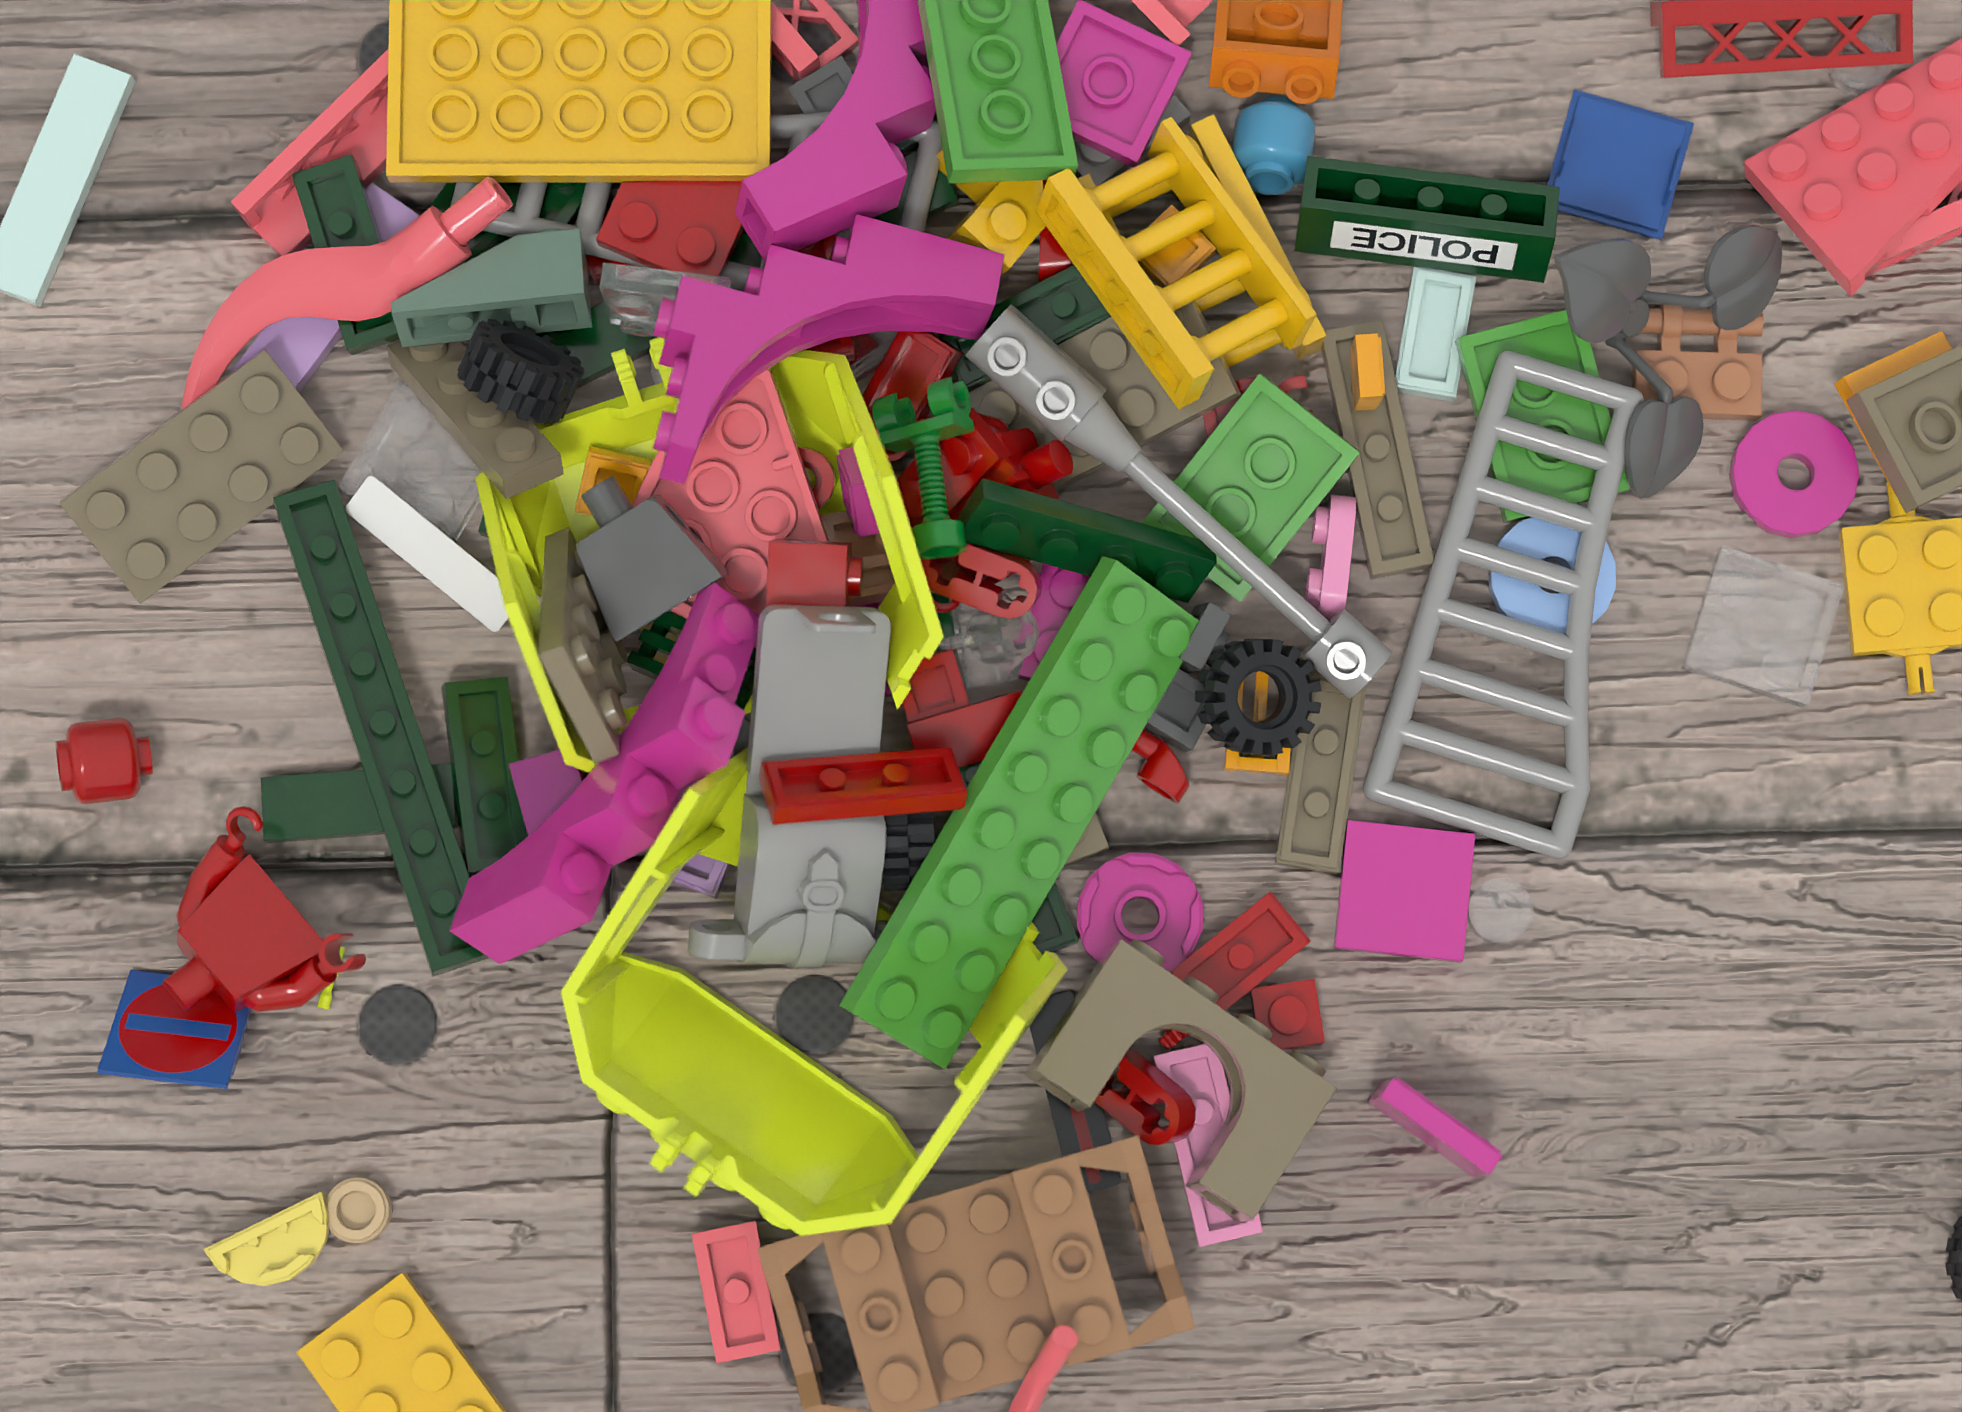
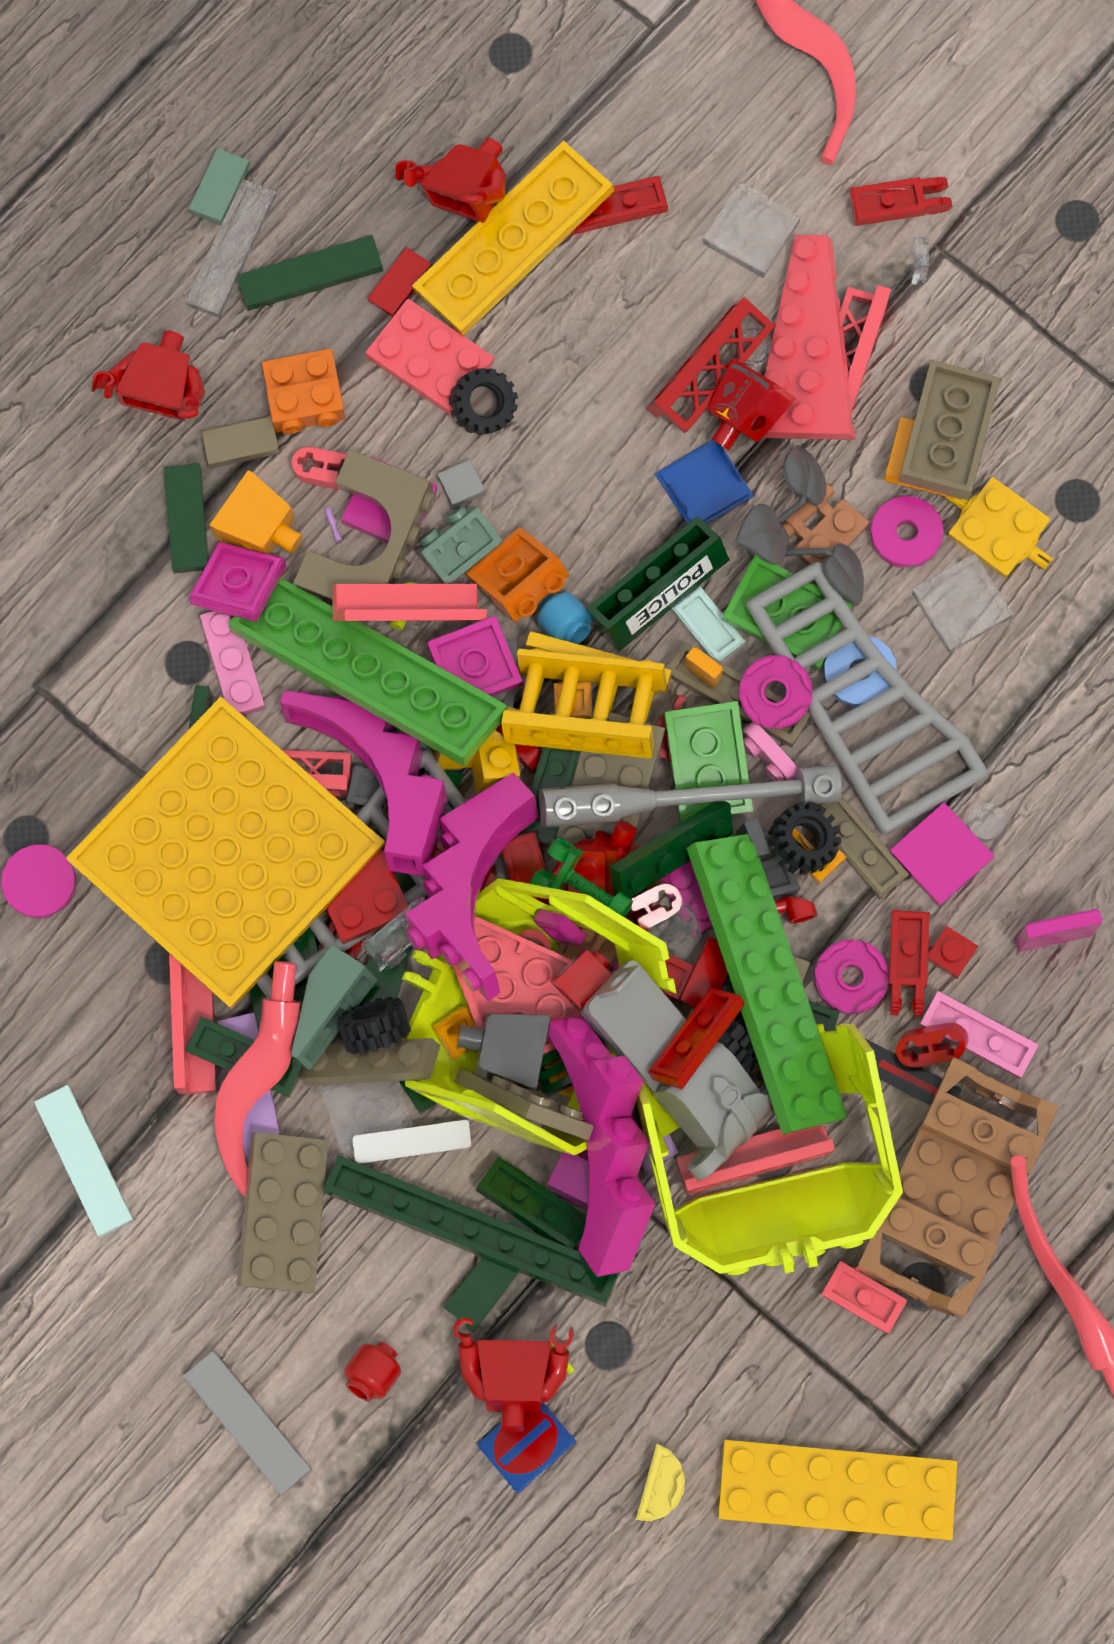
camera: 45 degrees left, 5 degrees down
(358, 1210) = (678, 1435): tan tile -> none
(804, 1004) = (760, 1156): none -> coral fence
(1271, 1092) = (982, 986): dark tan arch -> none
(1453, 508) = (769, 670): none -> dark pink tile
(1769, 119) = (746, 404): none -> red torso

